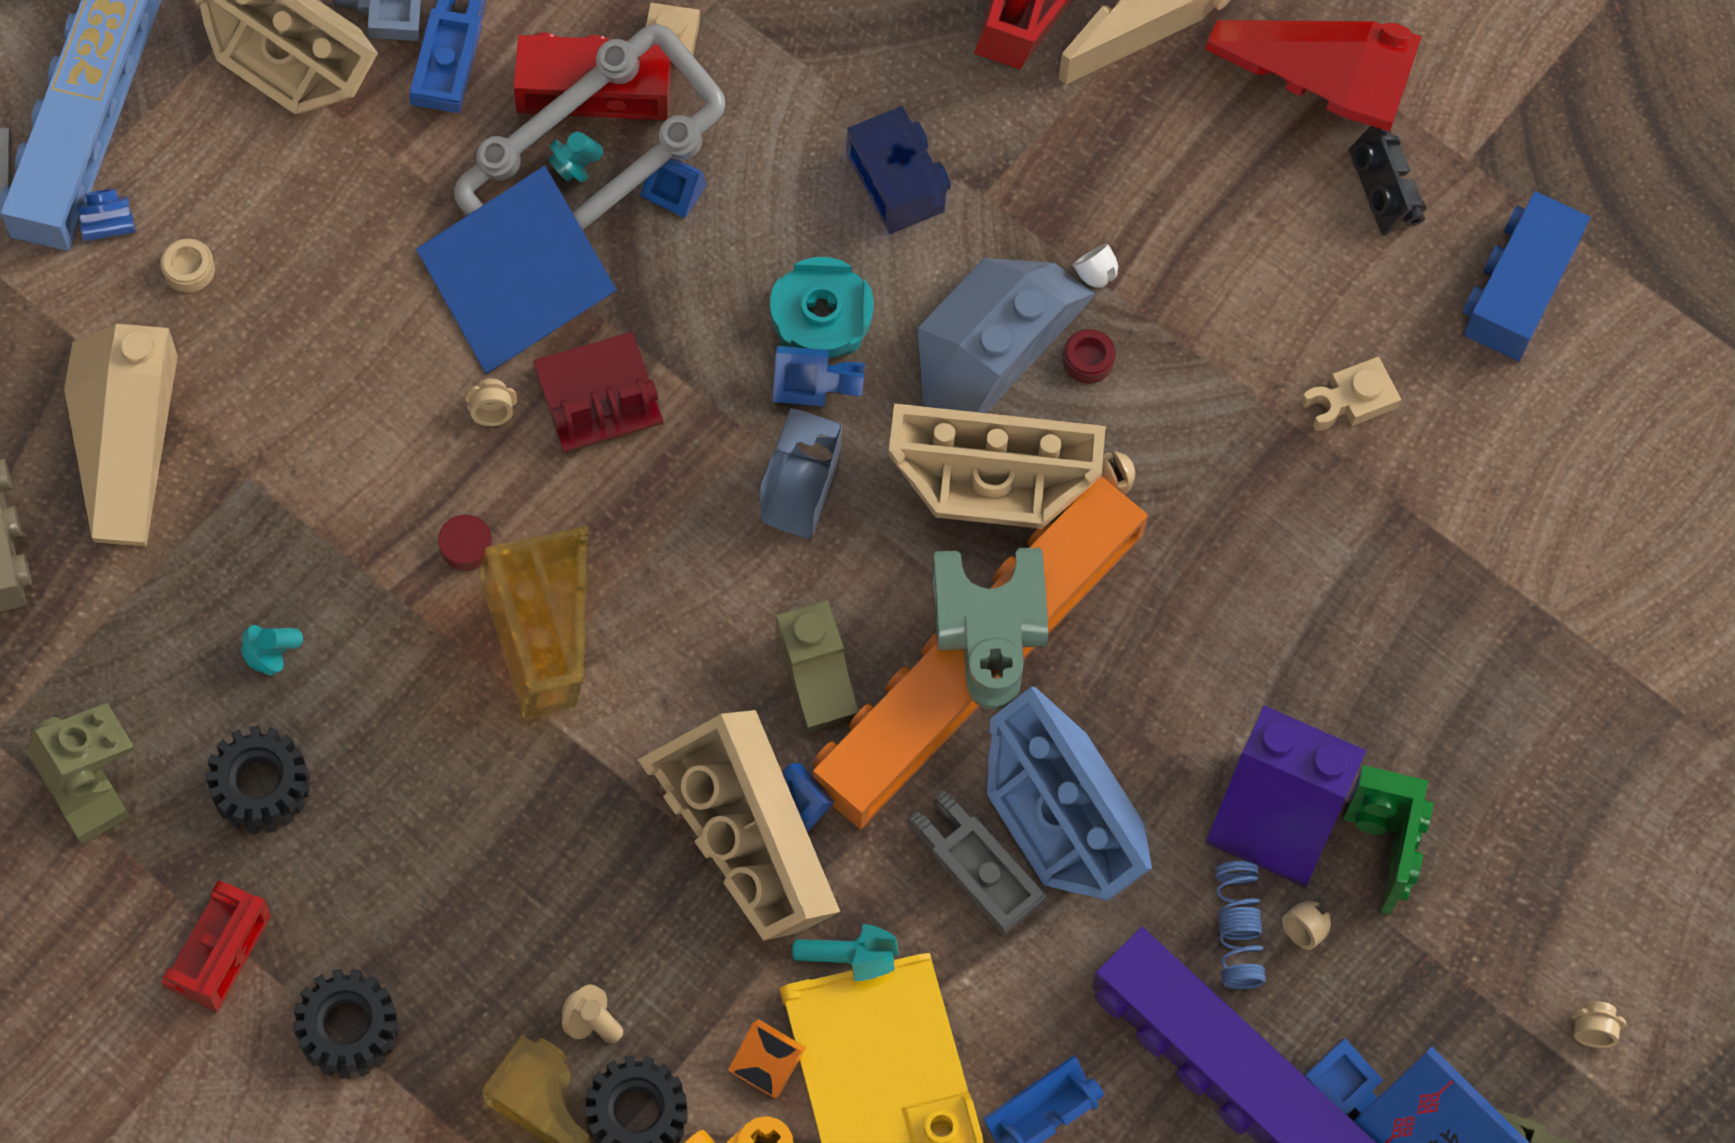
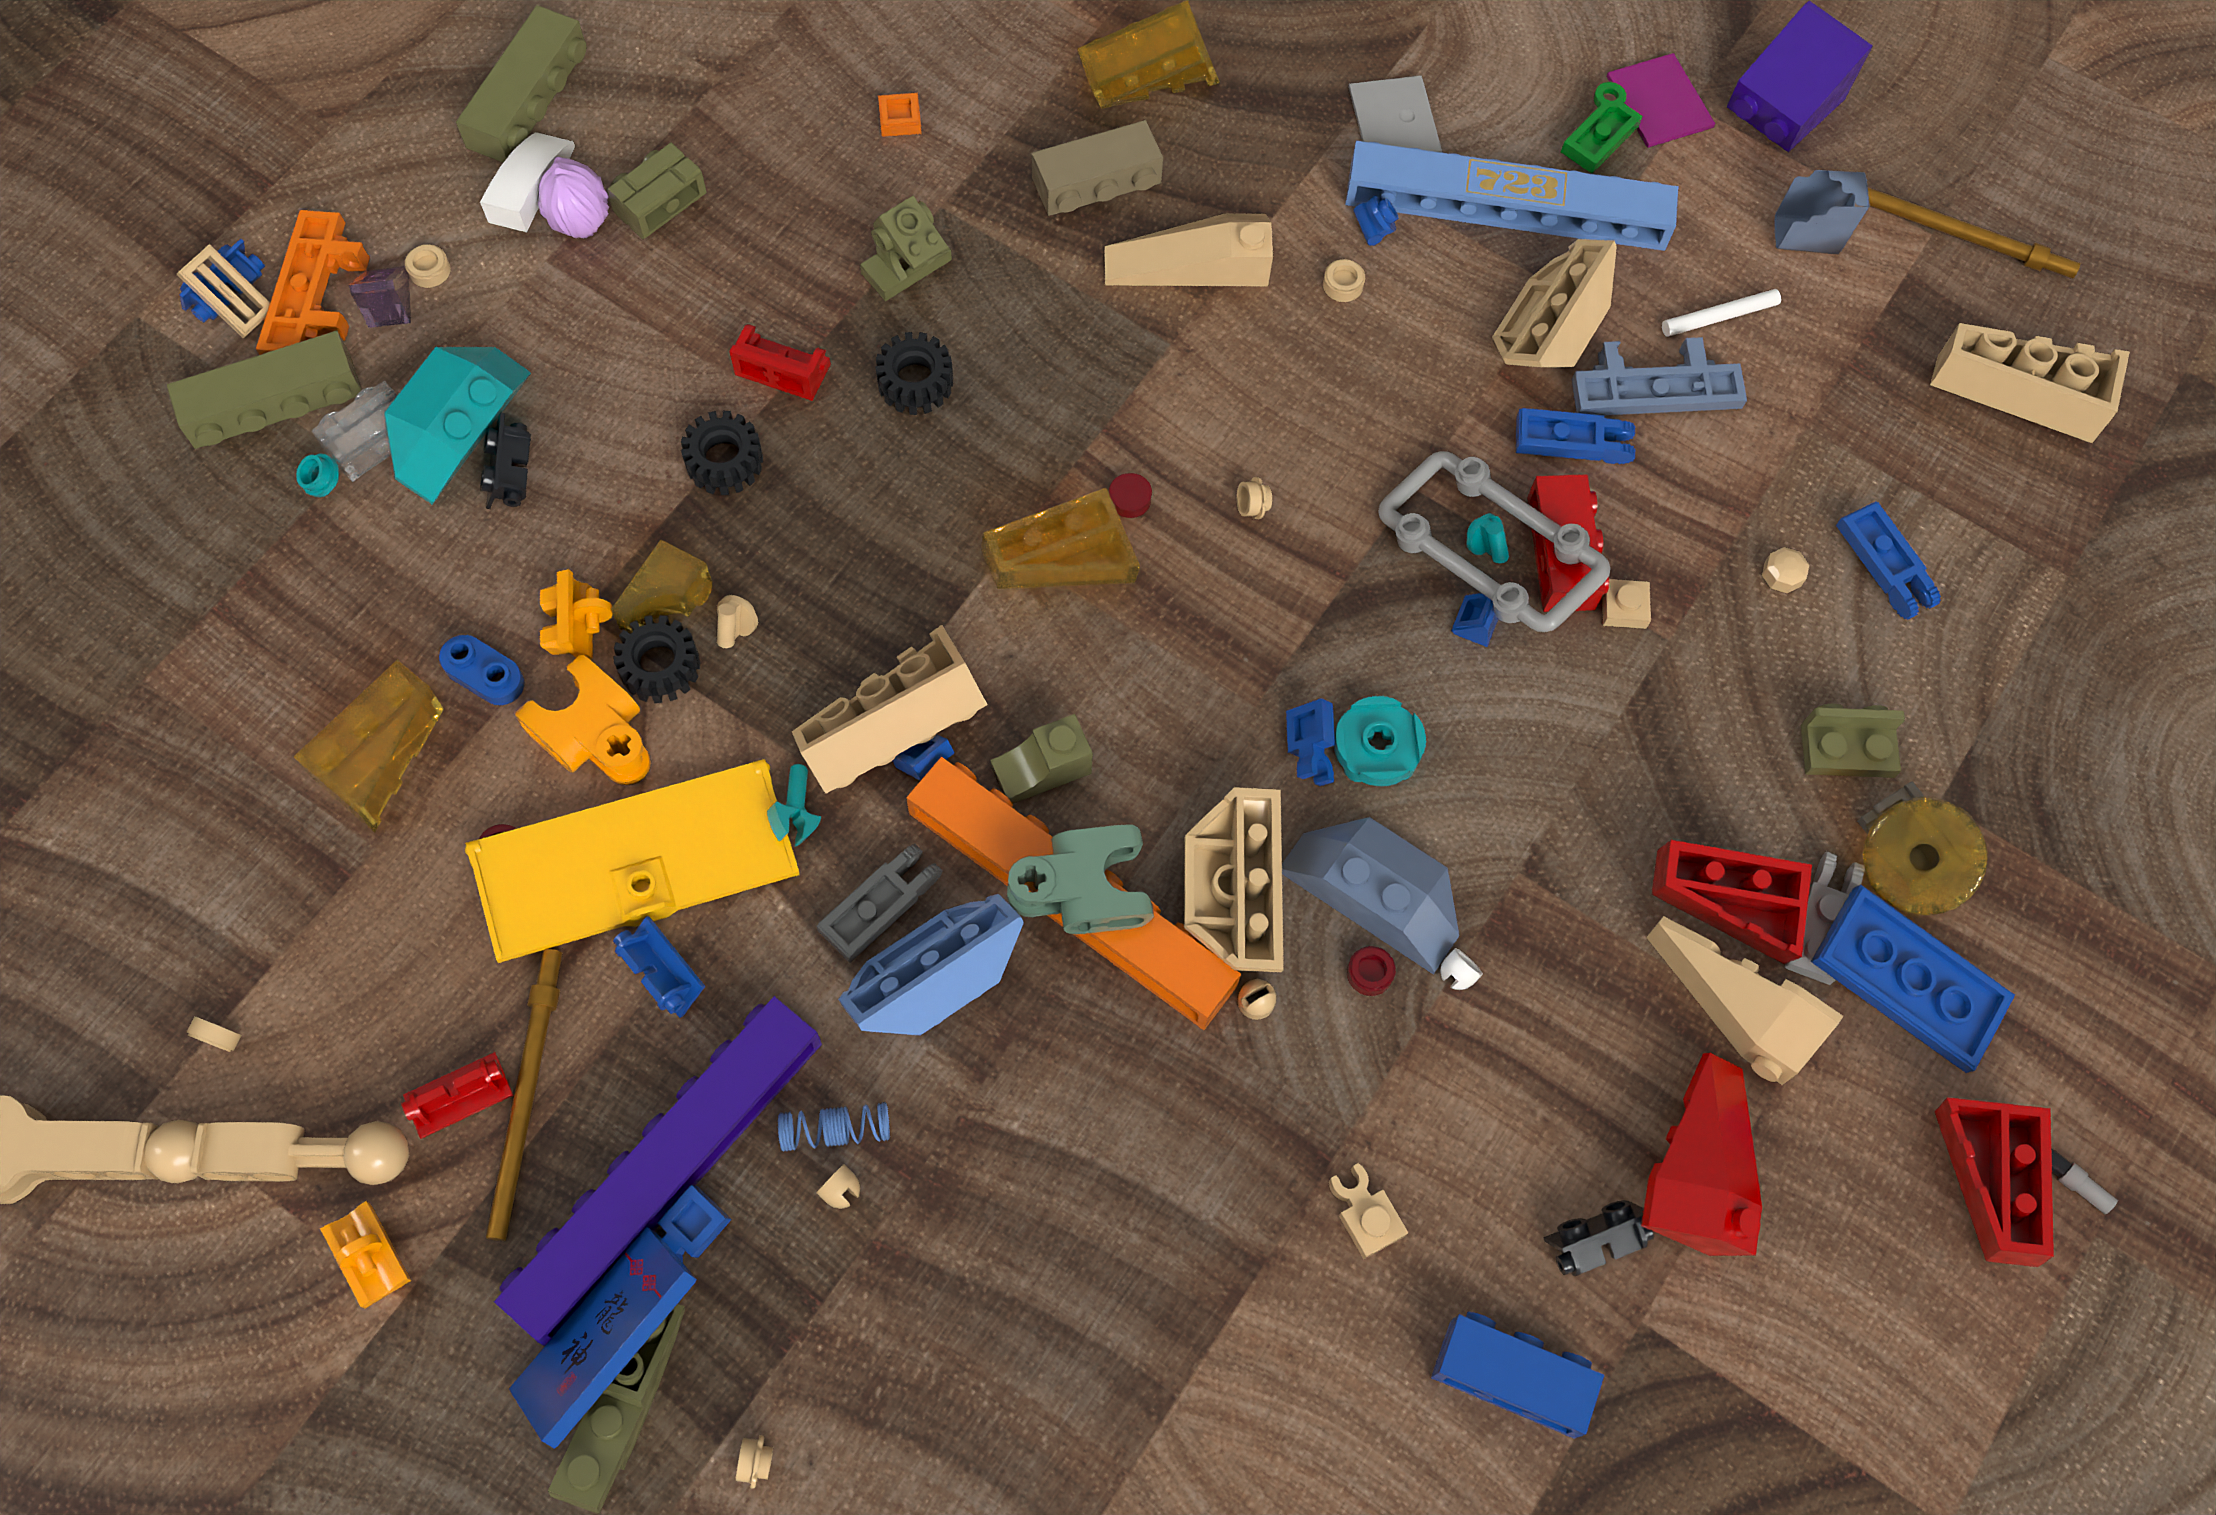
camera: 85 degrees right, 0 degrees up
(264, 647) = (1022, 366): teal plate -> none
(516, 269) = (1374, 502): blue piece -> none
(598, 392) = (1275, 577): dark red hinge -> none
(766, 1058) = (701, 751): orange tile -> none
(796, 487) = (1211, 727): sand blue piece -> none
(897, 169) = (1537, 771): clear blue brick -> none
(1285, 796) = (947, 1152): dark purple slope -> none
(1395, 804) = (929, 1269): green bracket -> none

